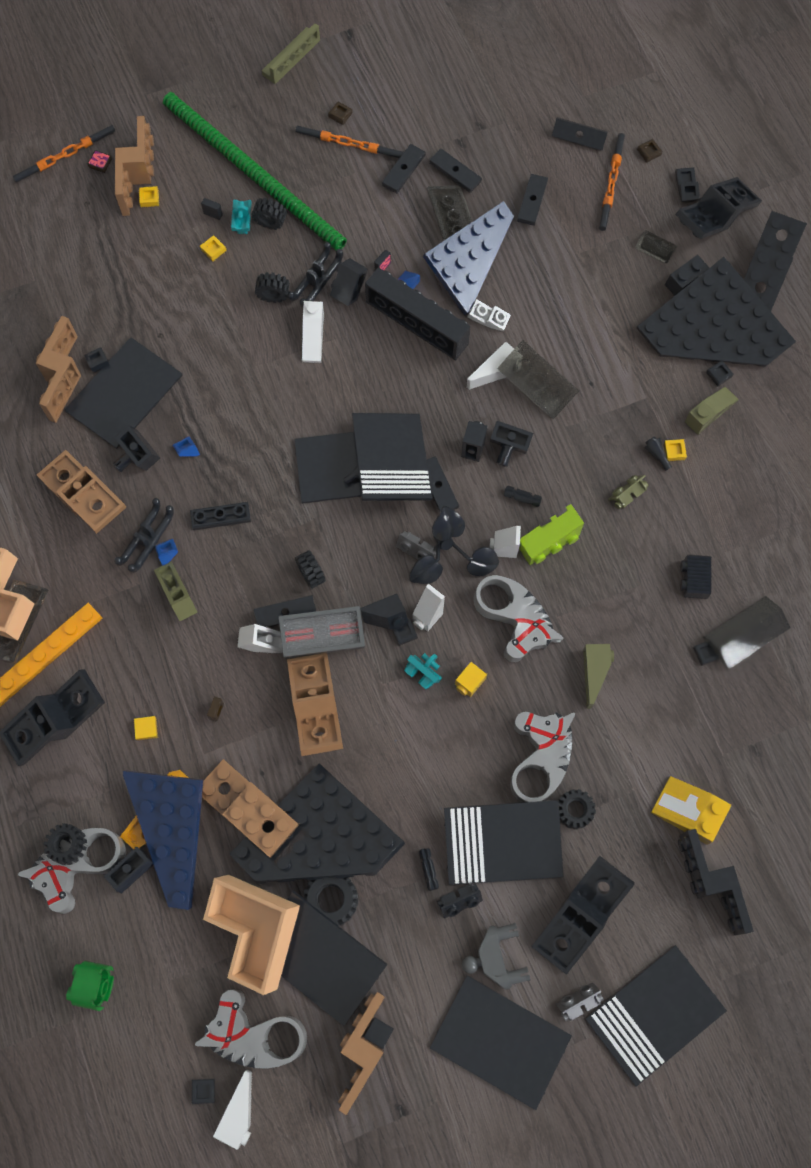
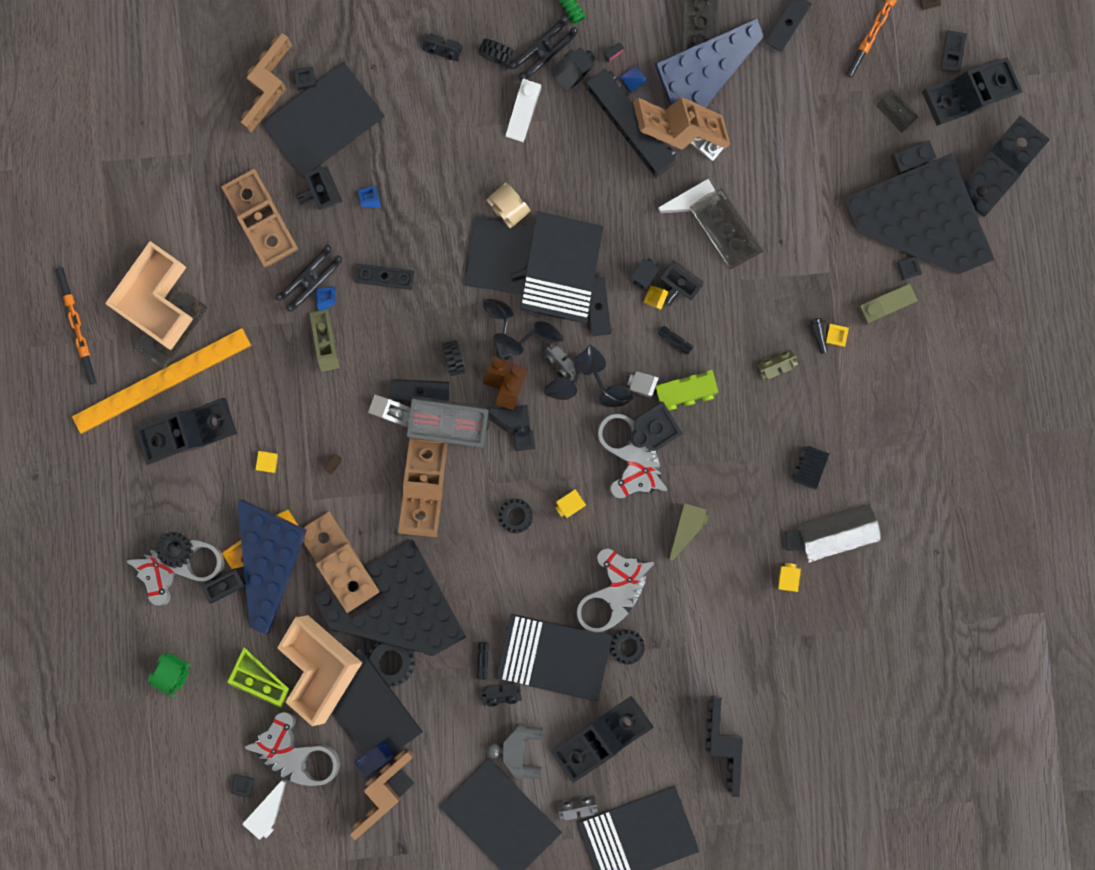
camera: 20 degrees right, 15 degrees up
(190, 964) = (257, 680): none -> lime wedge
(219, 301) = (433, 45): none -> black hinge
(323, 414) = (508, 205): none -> tan brick
(341, 1014) = (373, 759): none -> clear blue slope
(361, 537) = (508, 346): none -> black plant
(368, 574) = (507, 378): none -> reddish brown brick
(416, 664) = (533, 480): teal hips -> none
(424, 697) = (507, 524): none -> black tyre
(428, 608) = (549, 430): white slope -> none
(464, 296) = (681, 123): none -> medium nougat bracket
(490, 461) = (655, 297): none -> yellow tile
(532, 579) = (654, 428): none -> black plate
(691, 809) = (728, 677): yellow slope -> none
(715, 690) = (789, 577): none -> yellow brick

